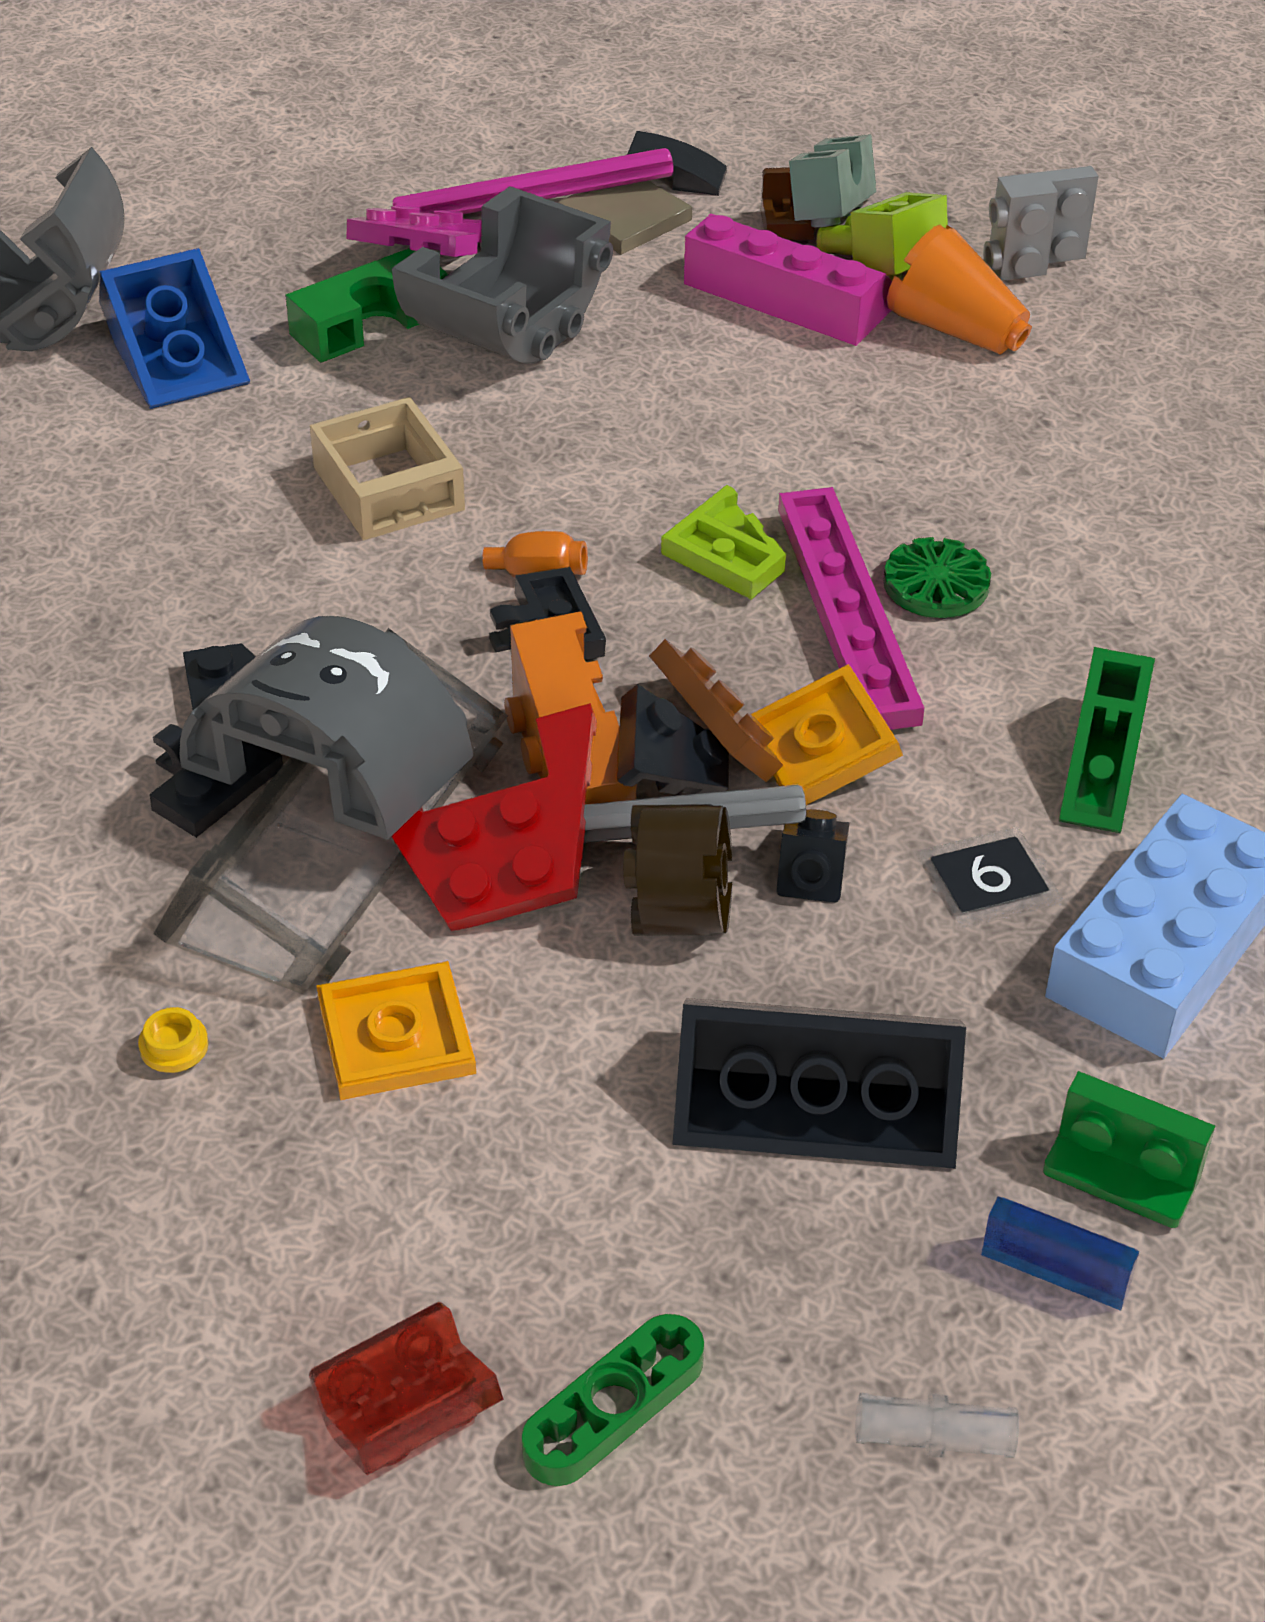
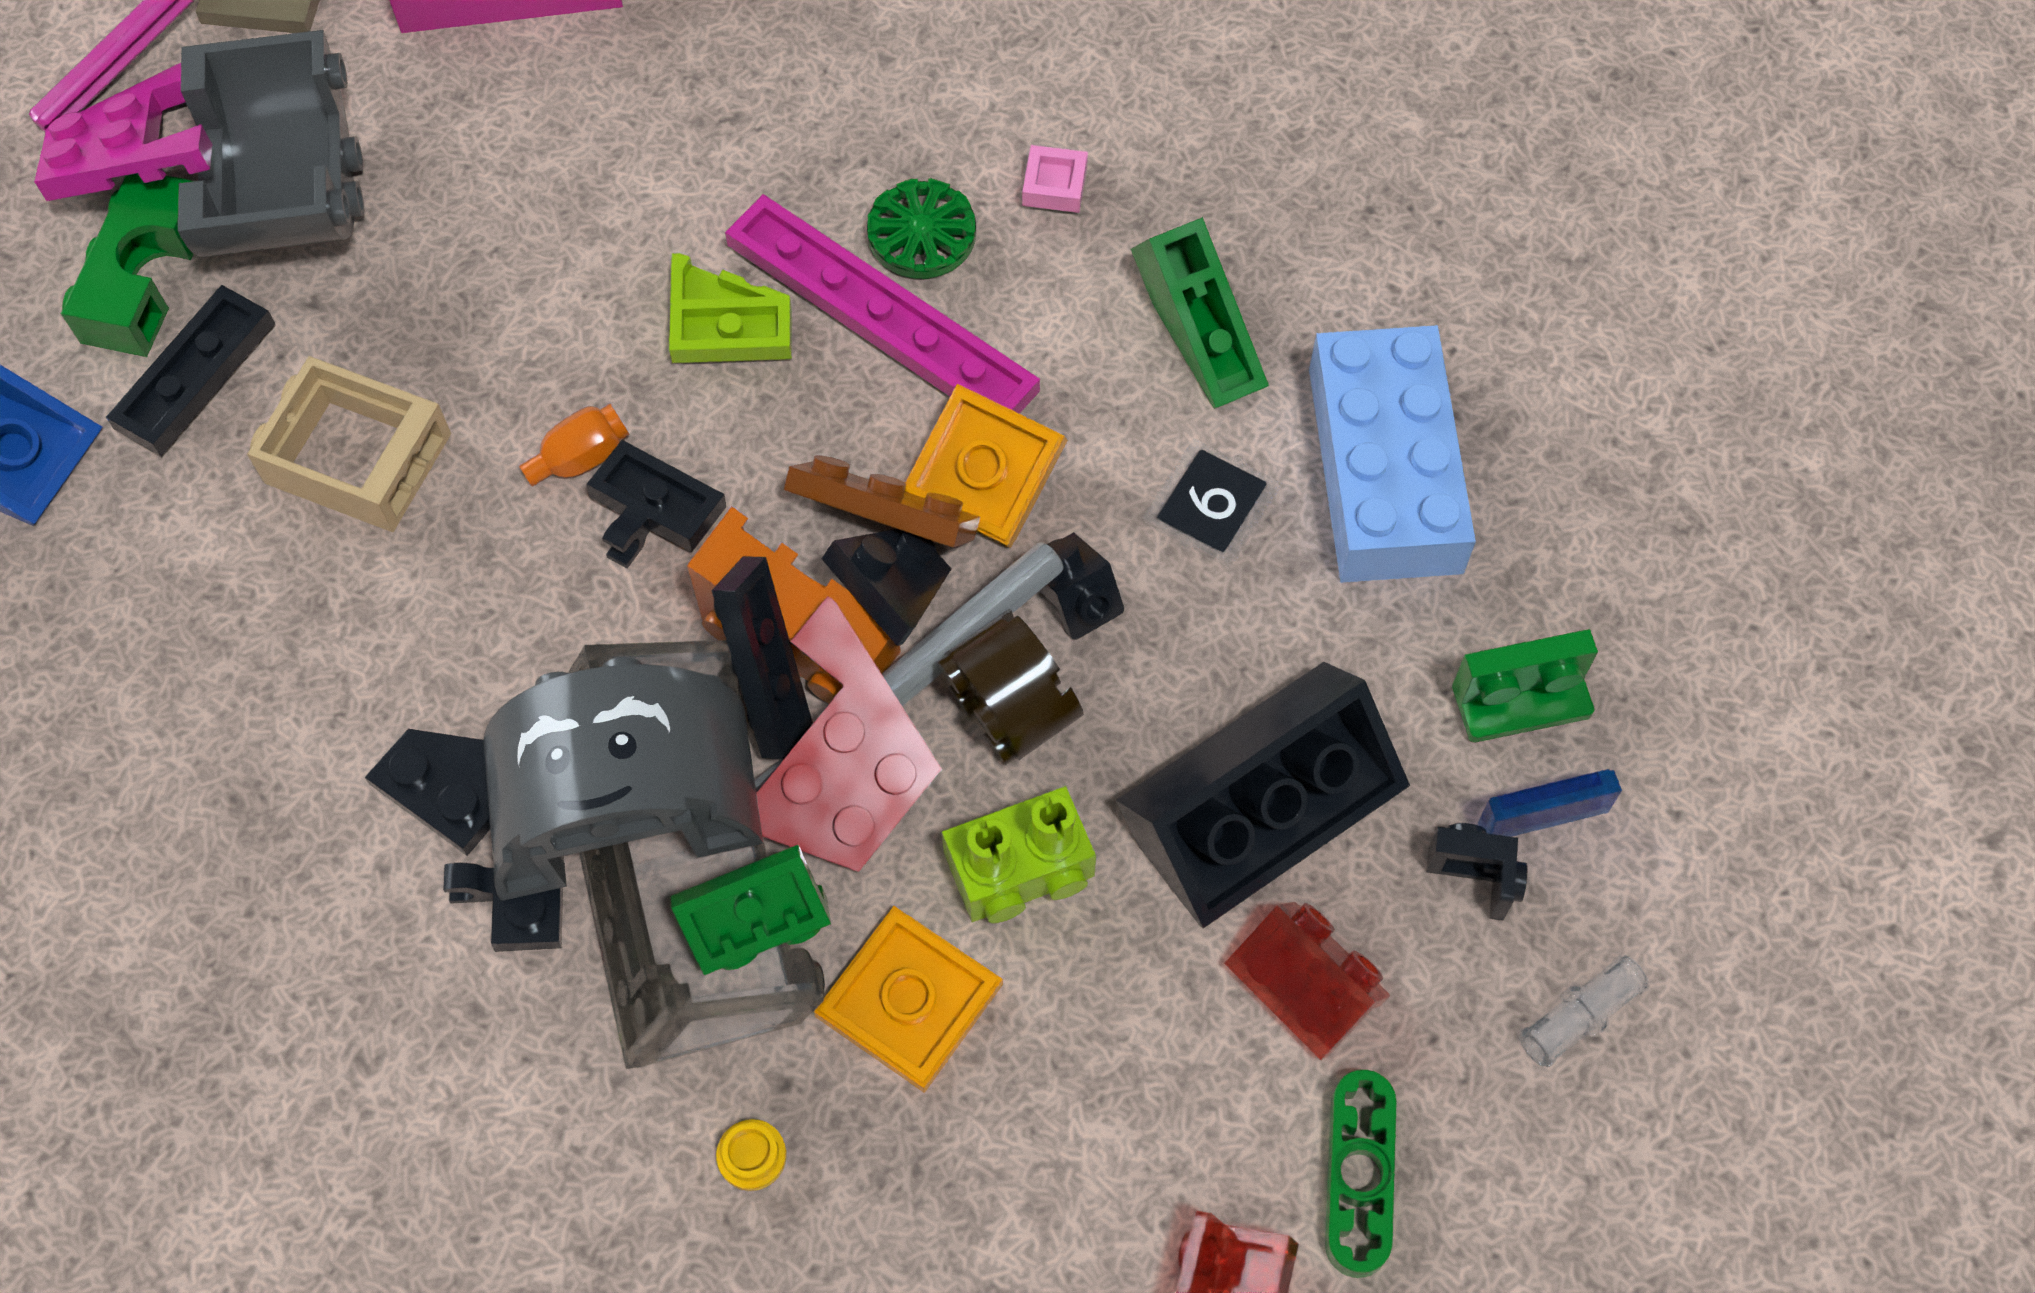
camera: 40 degrees left, 20 degrees up
(331, 869) = (751, 911): none -> green bracket
(336, 377) = (190, 370): none -> black plate
(507, 709) = (762, 656): none -> black plate
(573, 983) = (1020, 856): none -> lime brick
(719, 1228) = (1308, 976): none -> clear red bracket
(956, 1245) = (1474, 854): none -> black bracket
(1076, 601) = (1054, 178): none -> bright pink plate

